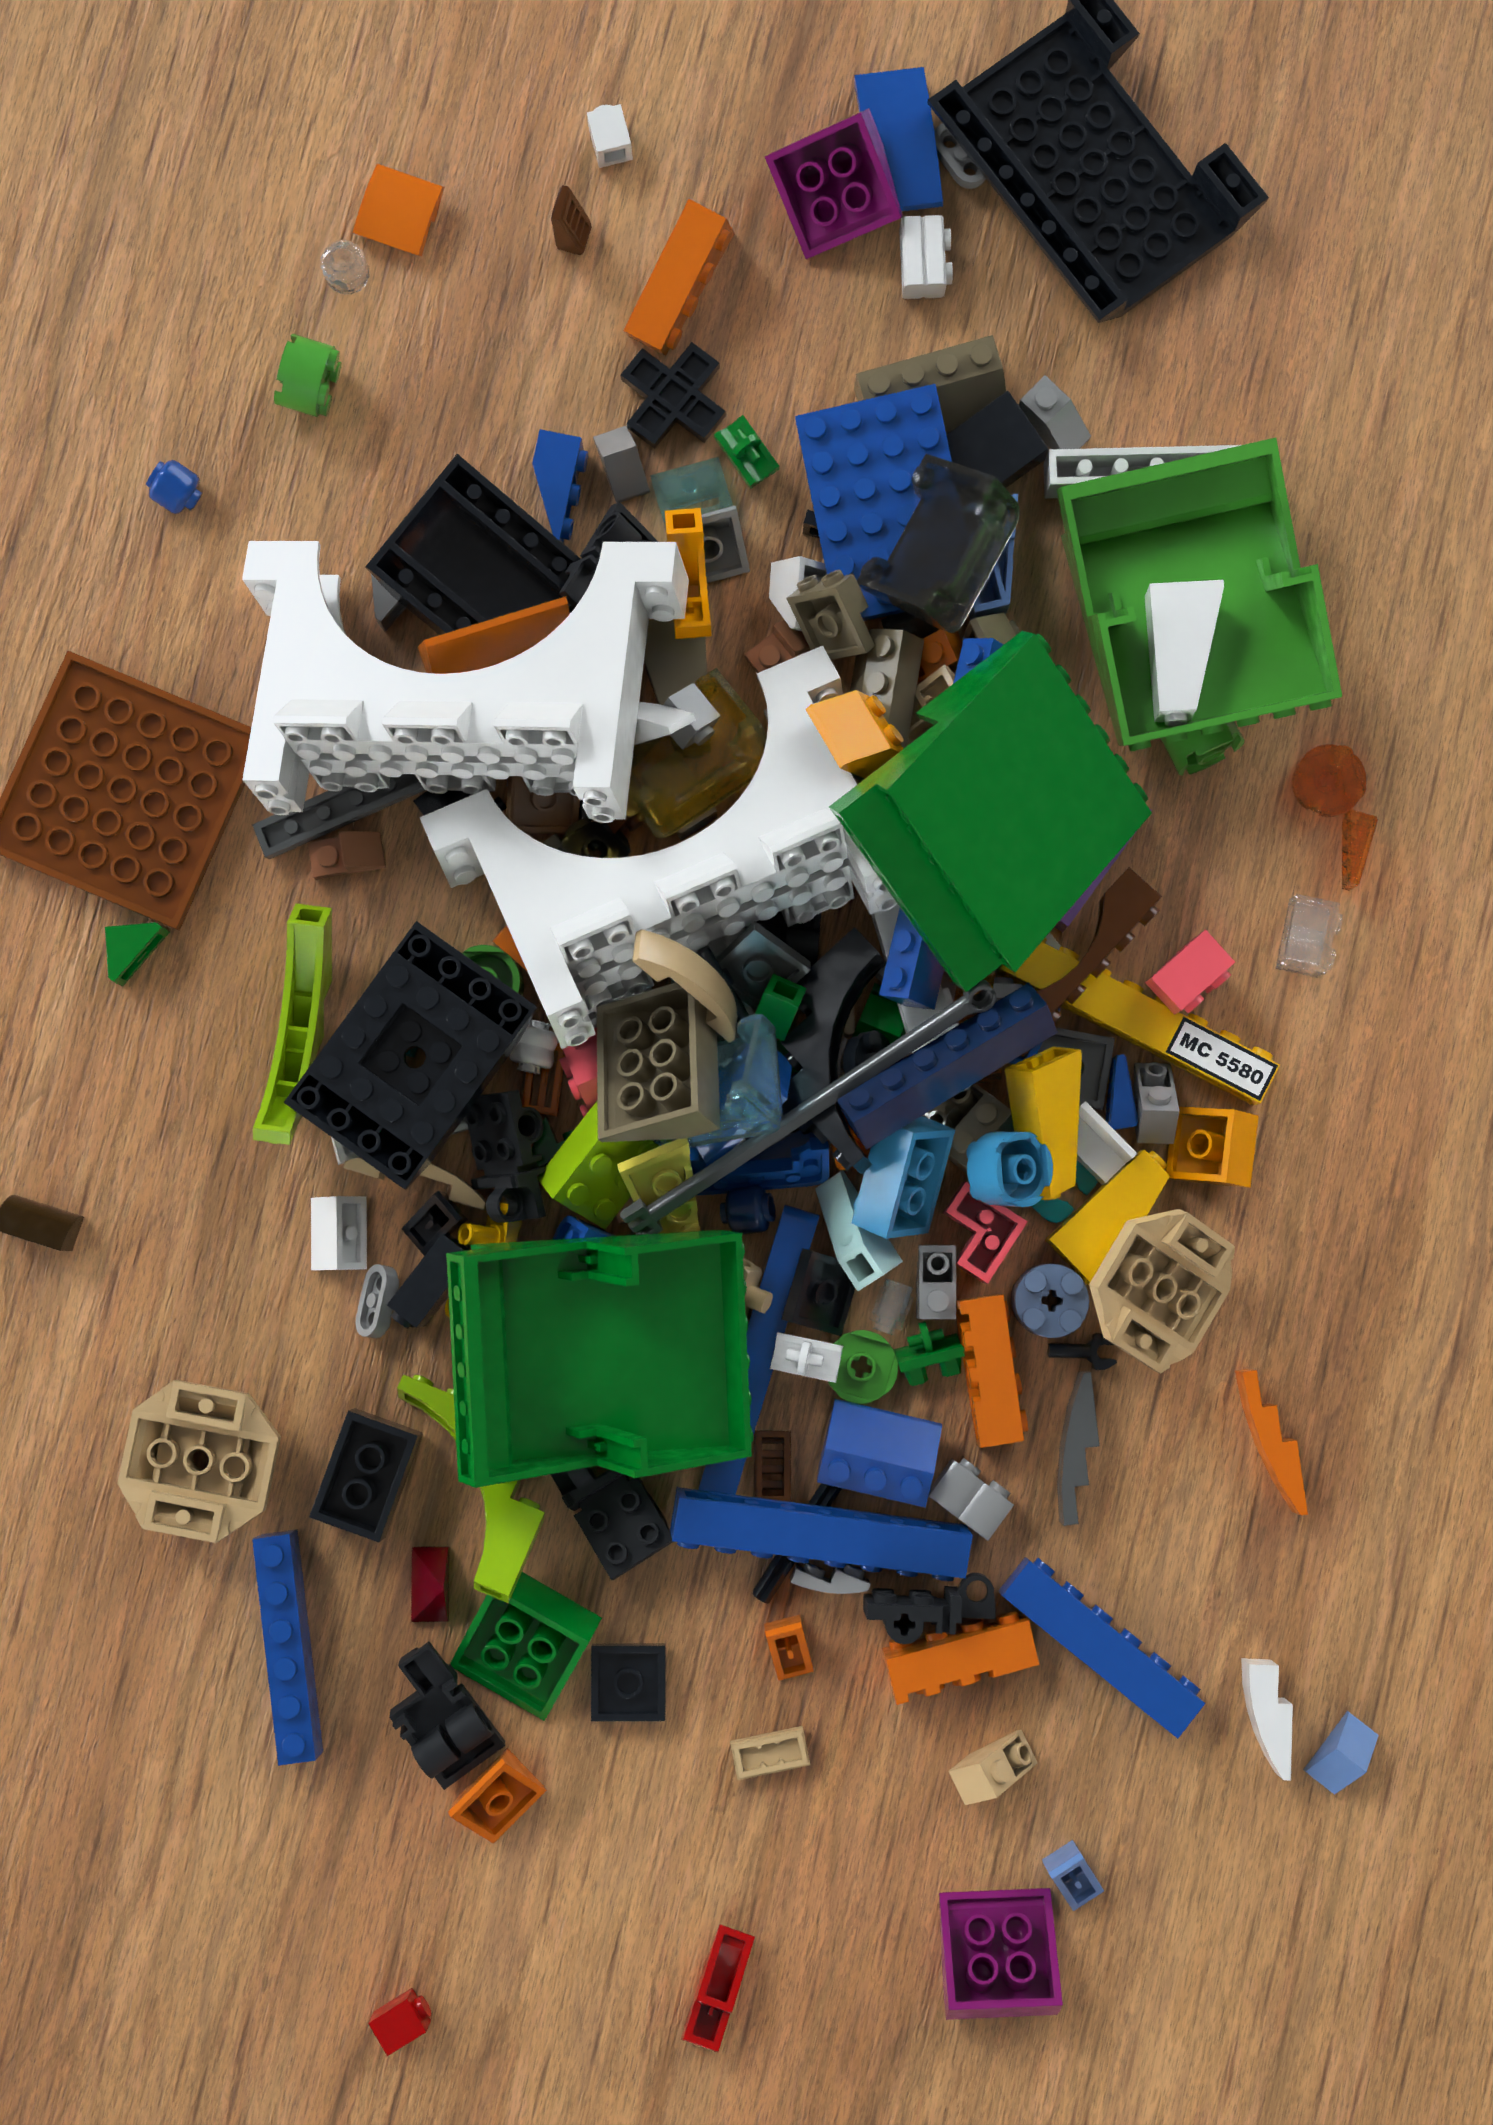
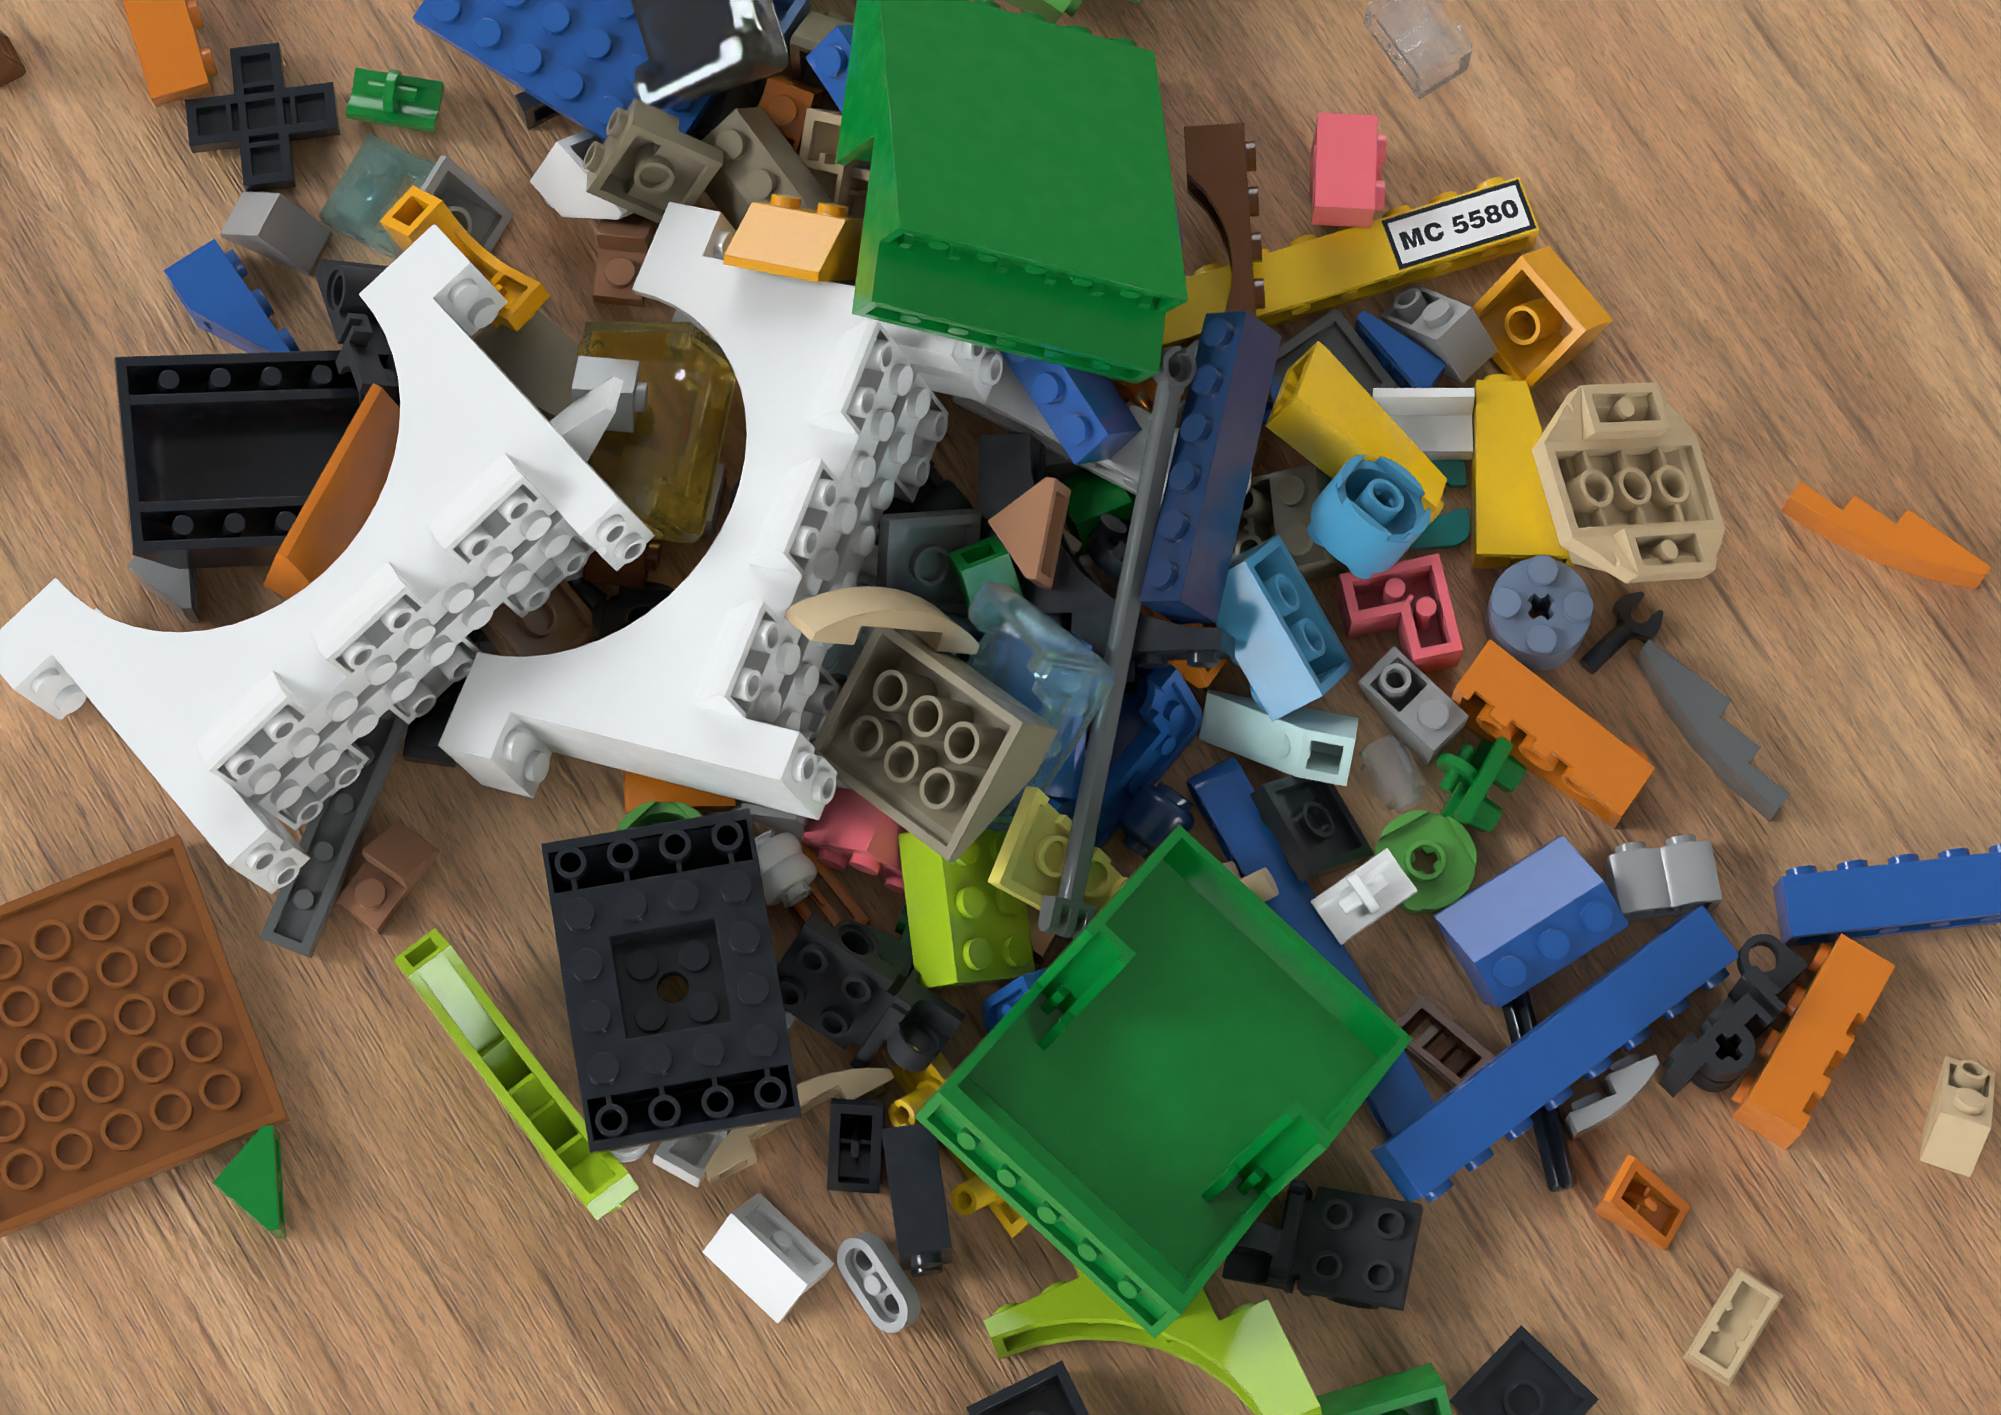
camera: 45 degrees left, 10 degrees down
(823, 1007) = (1034, 529): none -> nougat slope

